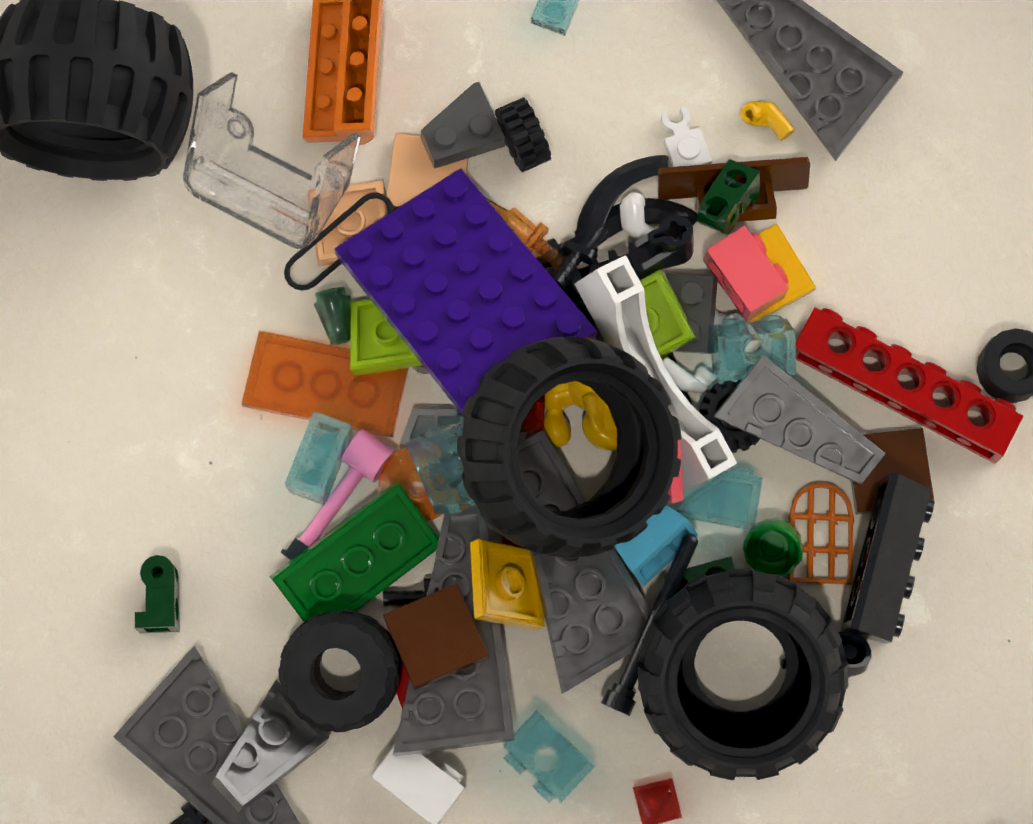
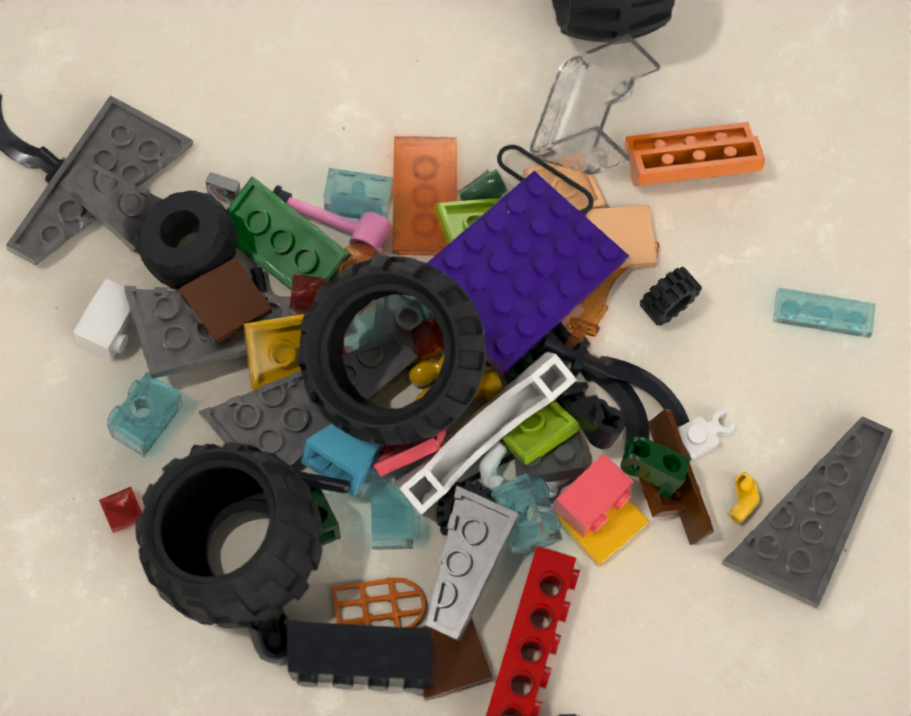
camera: 75 degrees right, 10 degrees down
(162, 597) = (227, 109): dark green leg -> none
(271, 618) = (222, 188): none -> light grey tile
(440, 539) = (304, 290): none -> clear red tile
(463, 129) = (664, 250): dark grey wing -> none
(633, 215) = (628, 398): white arm -> none
(773, 547) = (355, 562): green hair -> none

